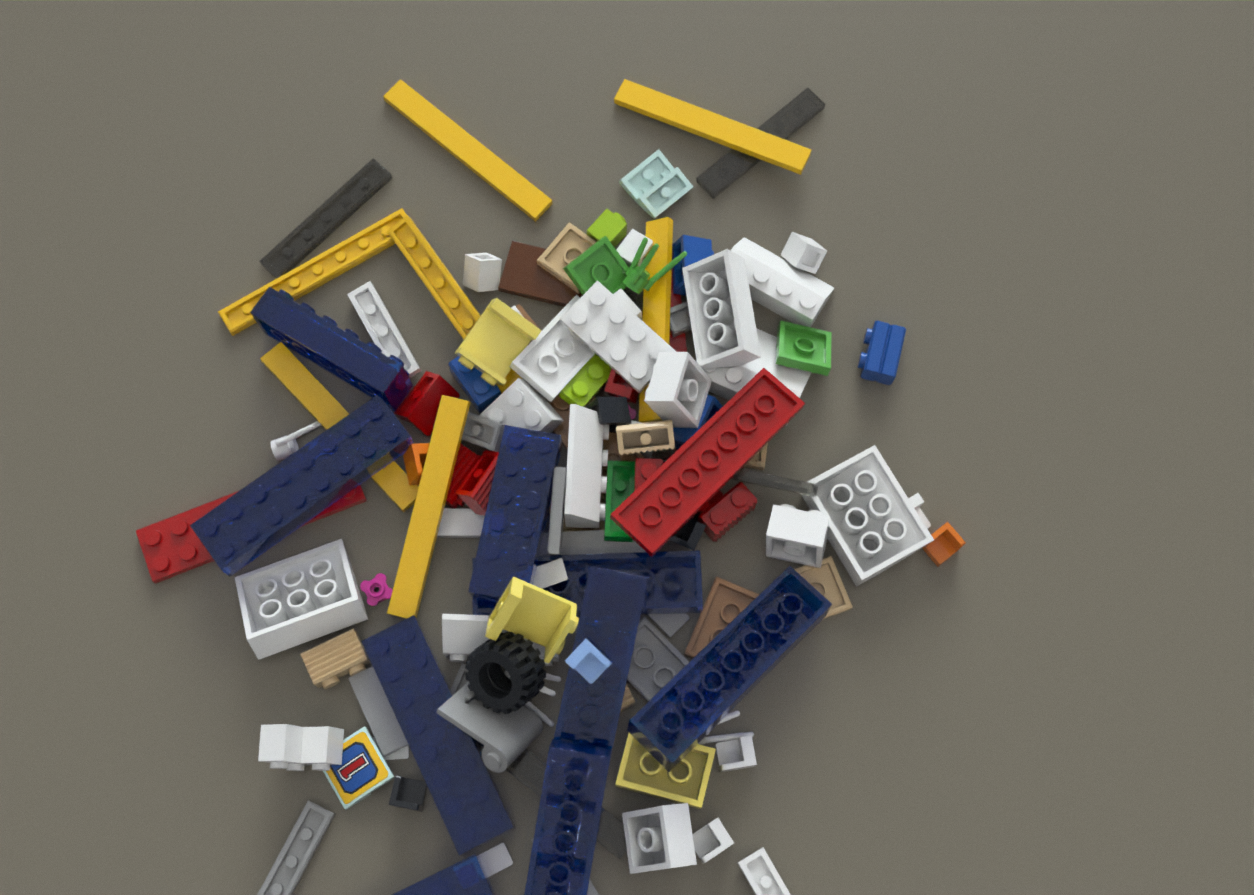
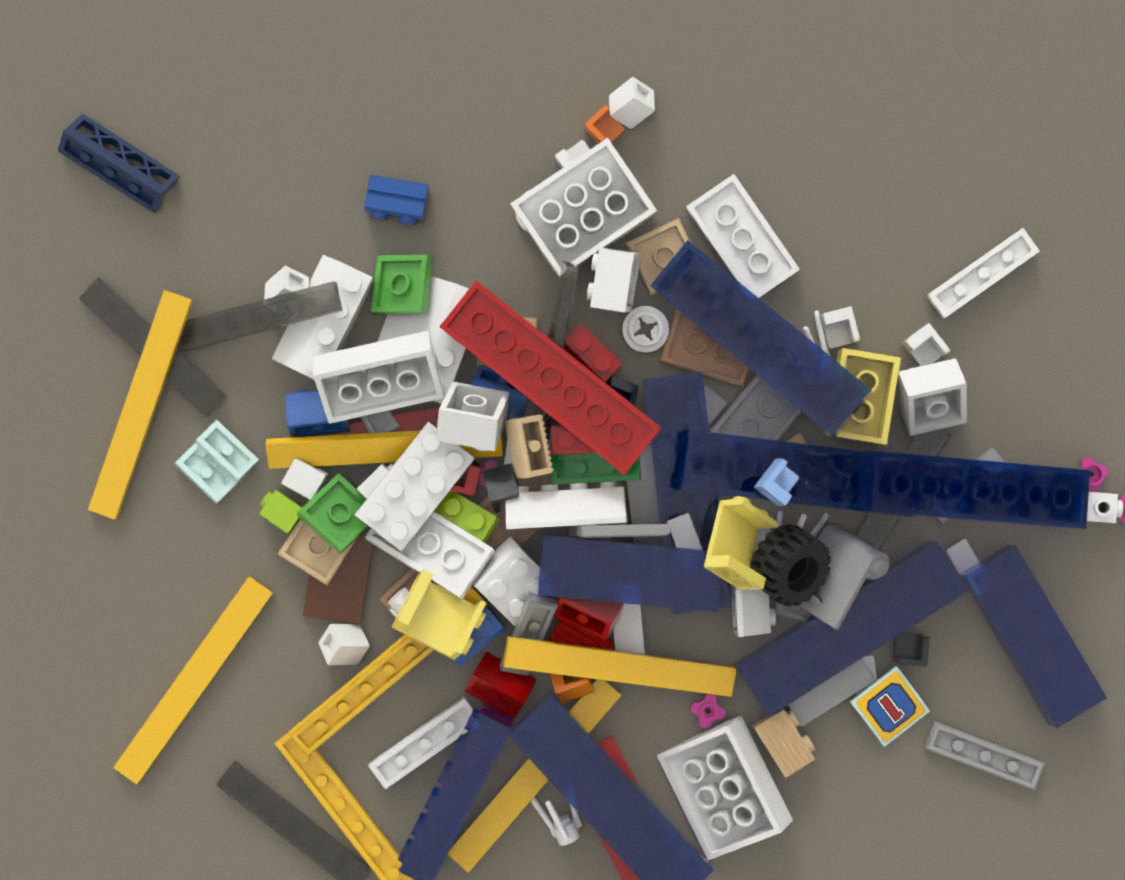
camera: 90 degrees left, 15 degrees up
(296, 746) = (877, 762): white brick -> none
(638, 277) = (341, 470): bright green plant -> none
(751, 554) = (650, 316): none -> white gear
(782, 226) = (260, 316): none -> clear smoke tile
(829, 666) = (742, 237): none -> white plate
(923, 118) = (113, 165): none -> dark blue fence
(965, 573) = (631, 103): none -> white panel

